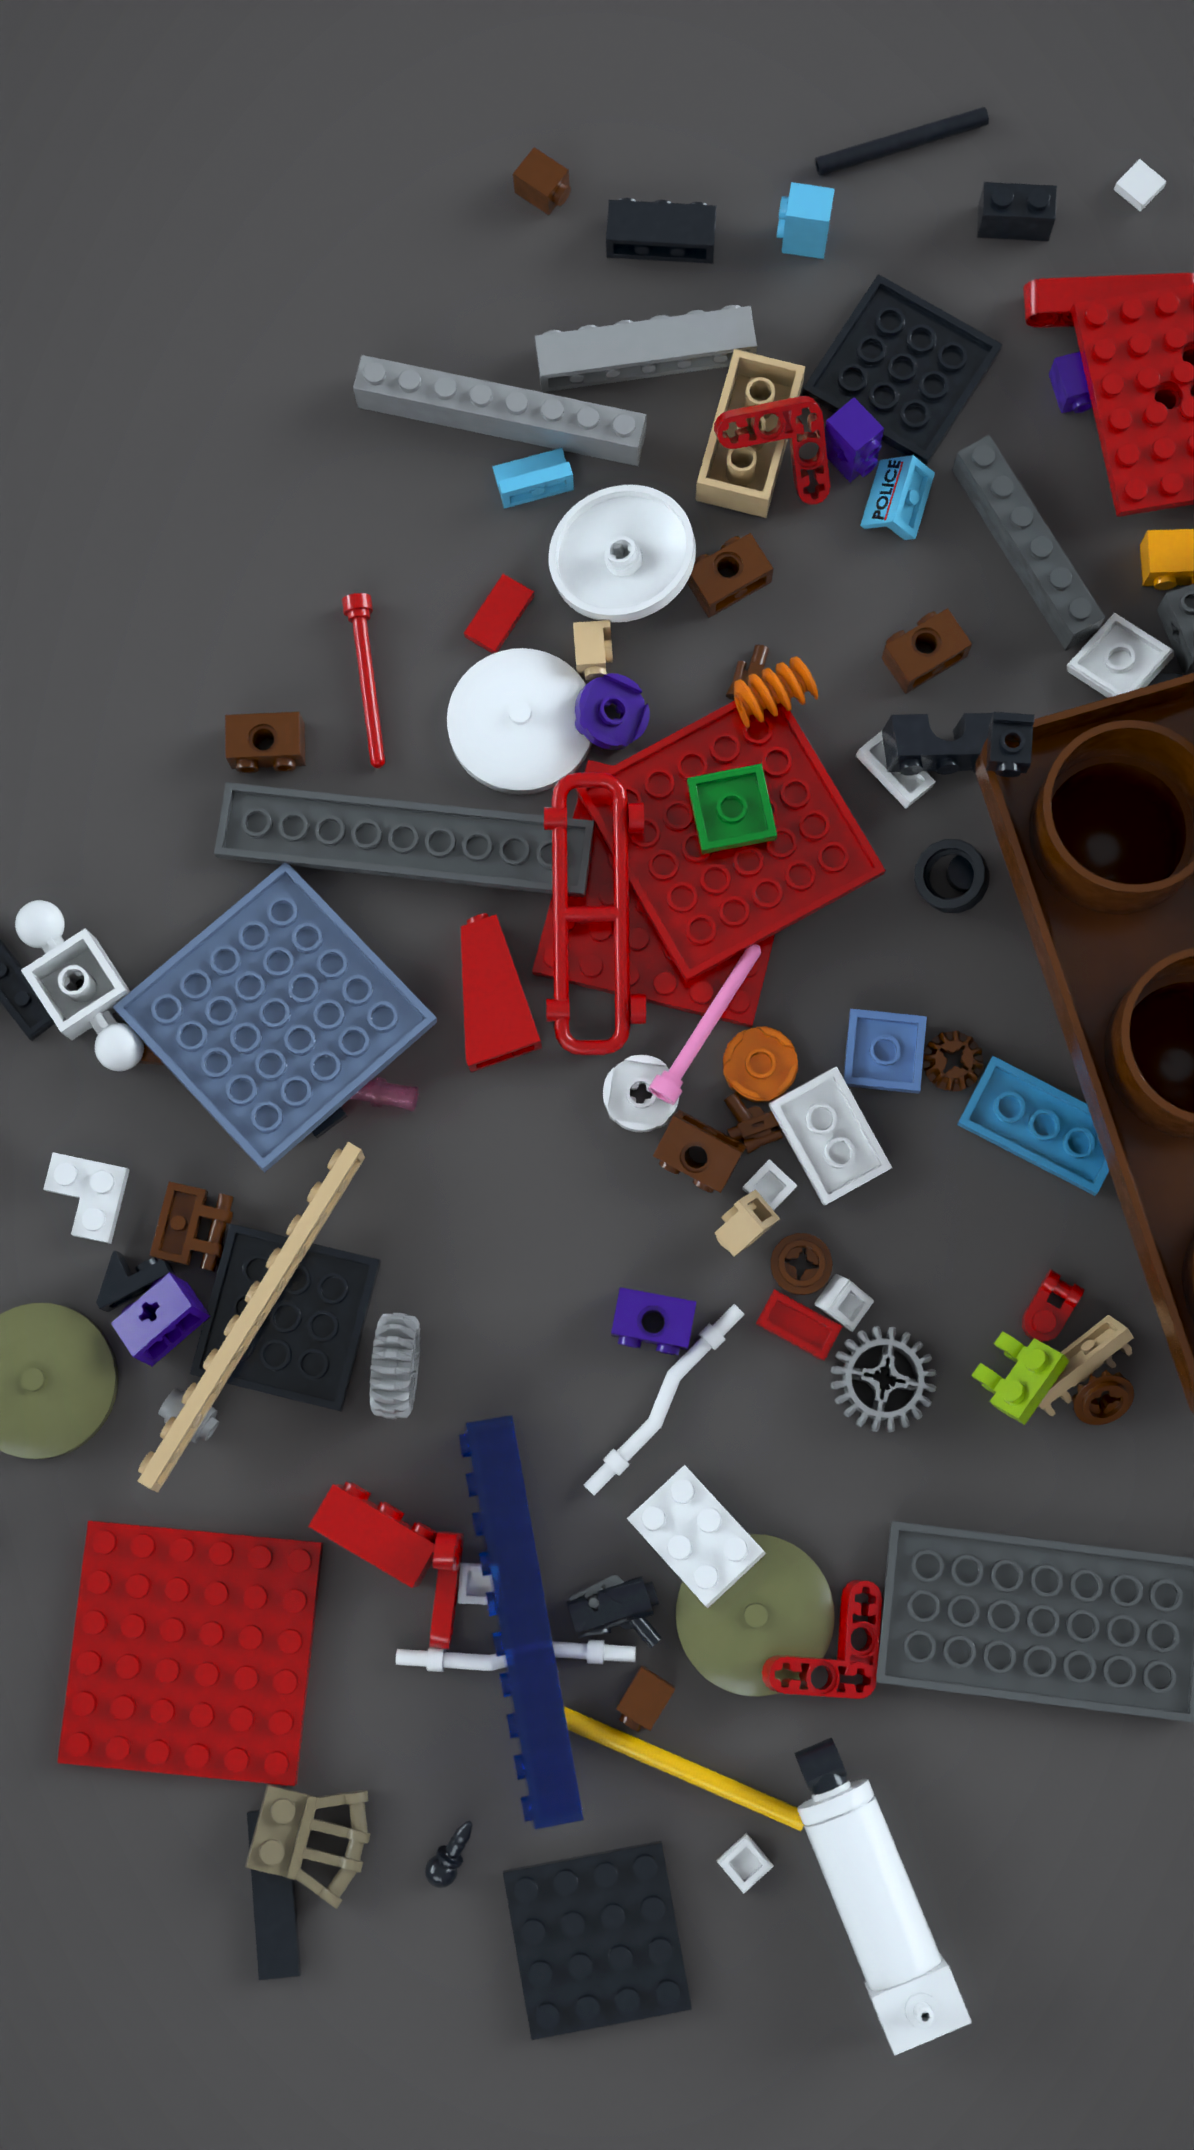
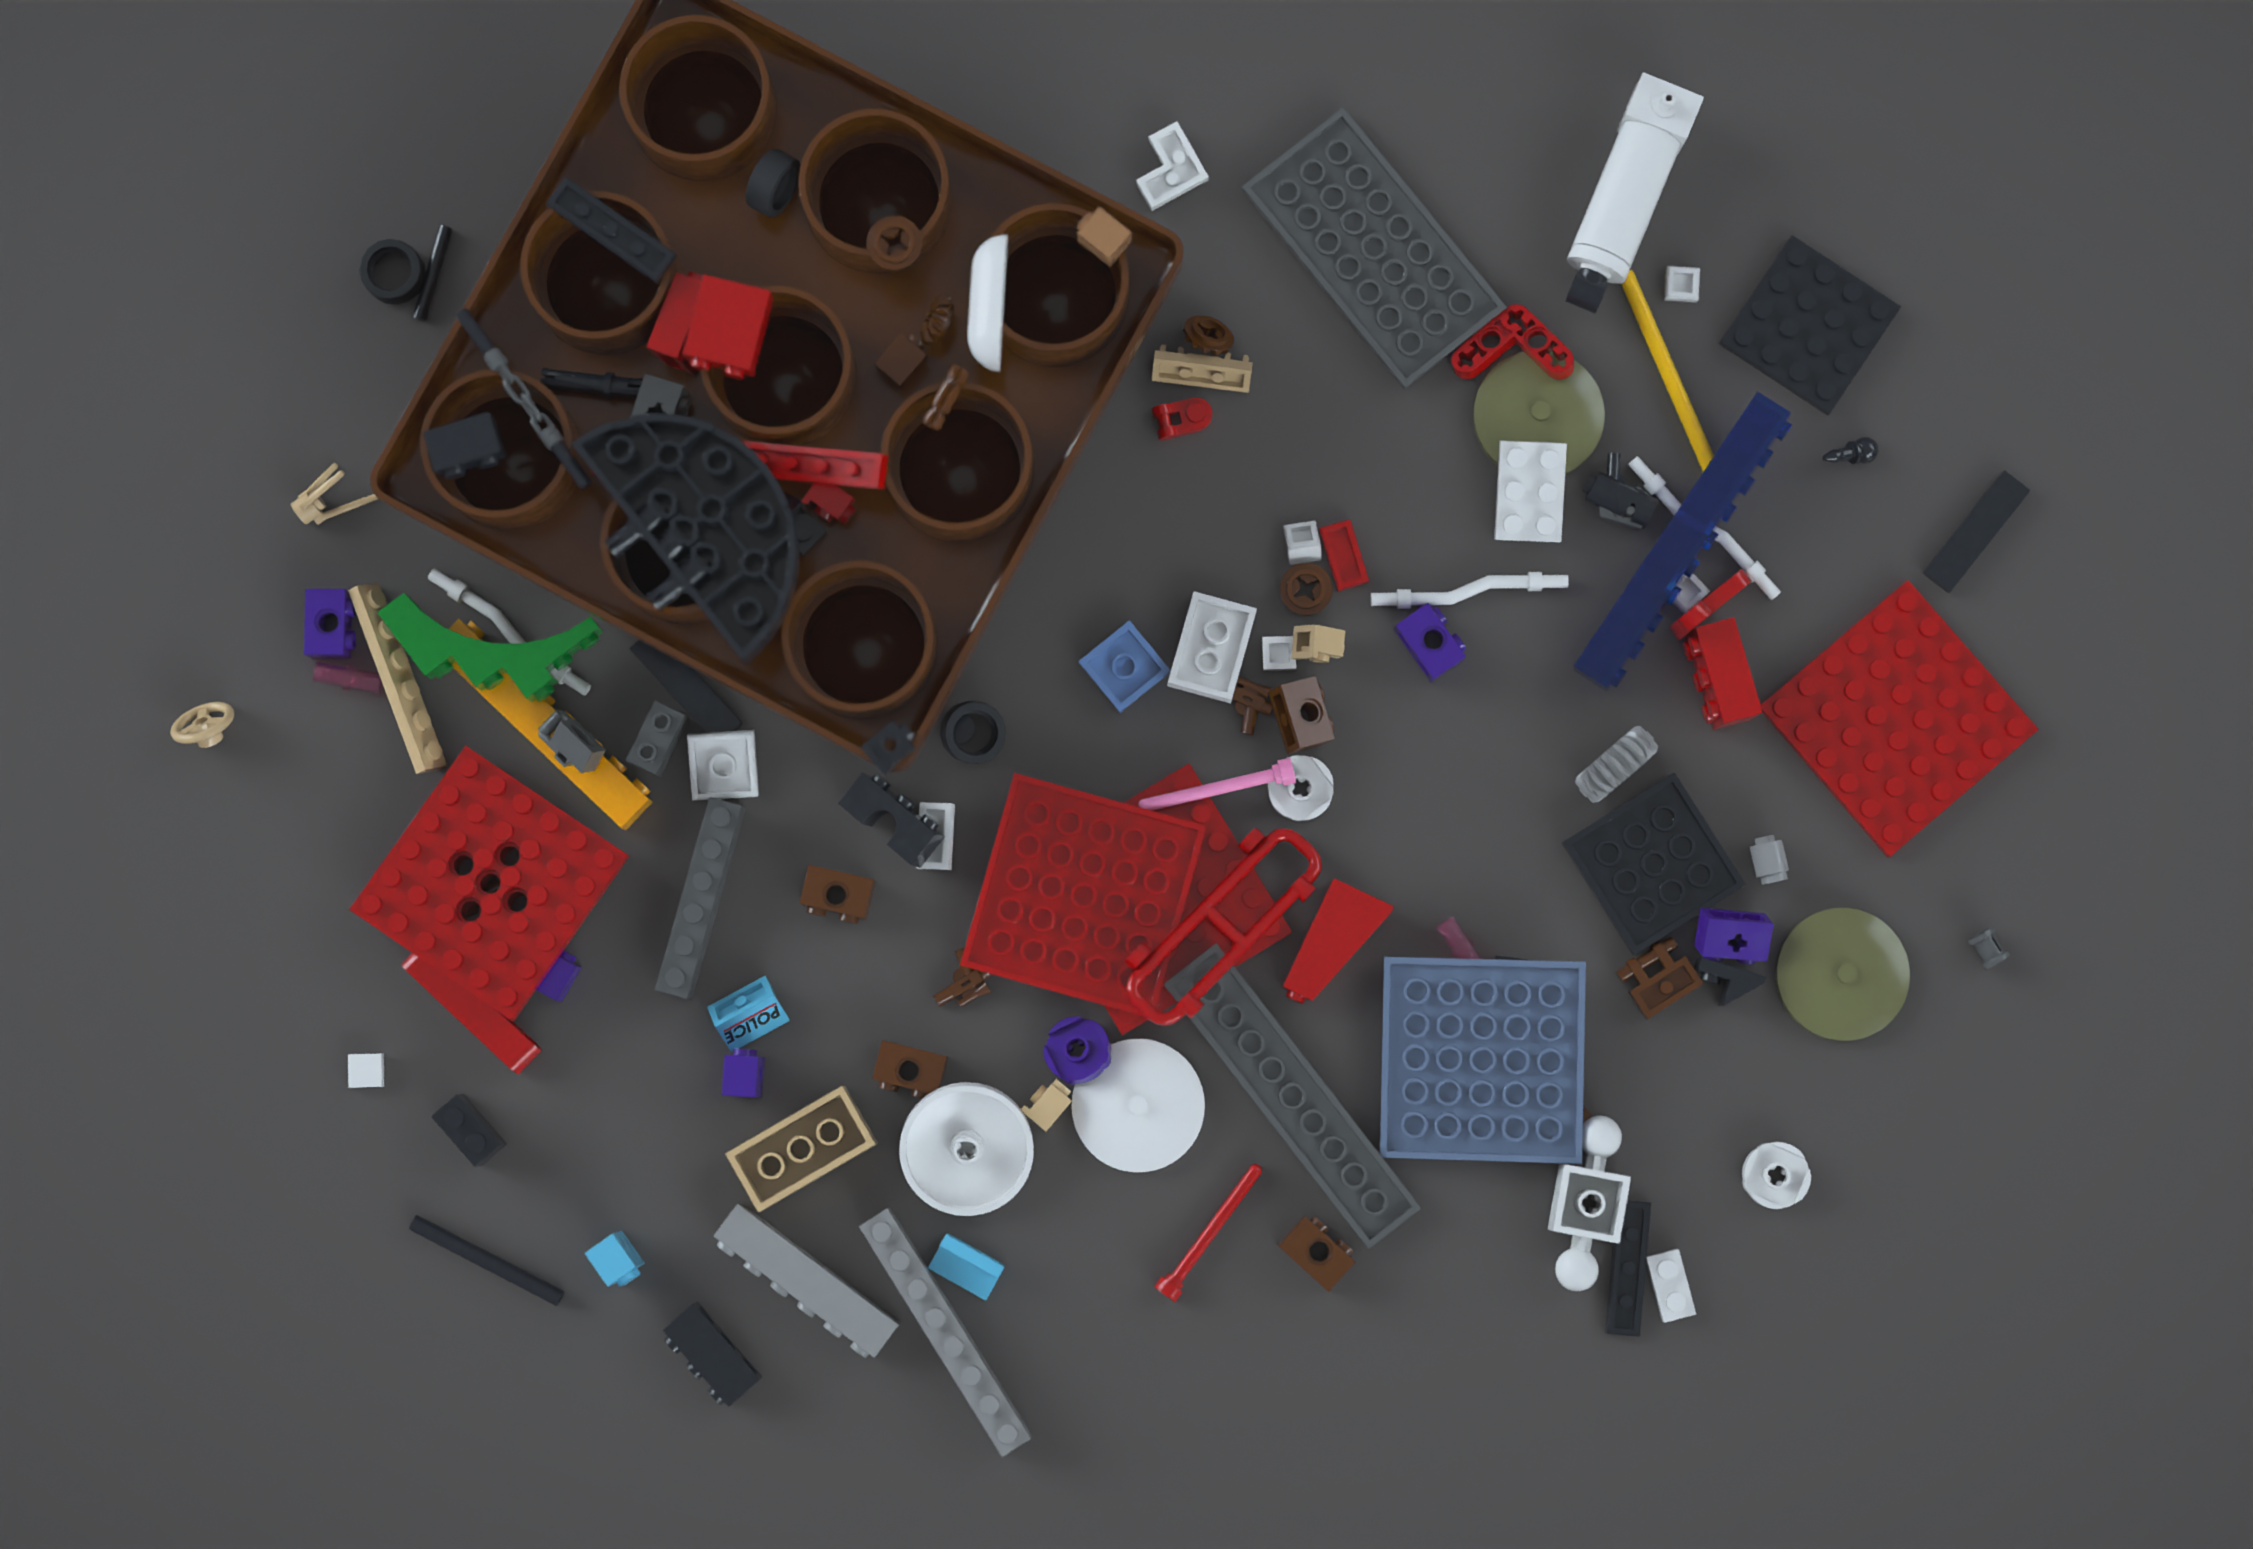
camera: 140 degrees left, 5 degrees up
(99, 1190) = (1694, 1063): white plate -> none
(243, 1328) = (1690, 876): tan plate -> none
(284, 1832) = (1936, 559): dark tan plate -> none
(499, 614) = (1081, 1192): red tile -> none
(542, 181) = (754, 1470): reddish brown brick -> none
(644, 1699) = (1652, 428): reddish brown brick -> none
(731, 808) = (1072, 903): green plate -> none
(760, 1064) = (1207, 735): orange tile -> none
(773, 689) = (970, 951): orange piece -> none
(787, 427) = (780, 1119): red beam -> none
(904, 367) = (655, 1097): black plate -> none
(916, 1385) = (1319, 461): light grey gear -> none
(956, 1078) = (1077, 632): reddish brown gear -> none
(1028, 1381) = (1244, 386): lime plate -> none
(1036, 1125) = (1081, 537): dark azure plate -> none

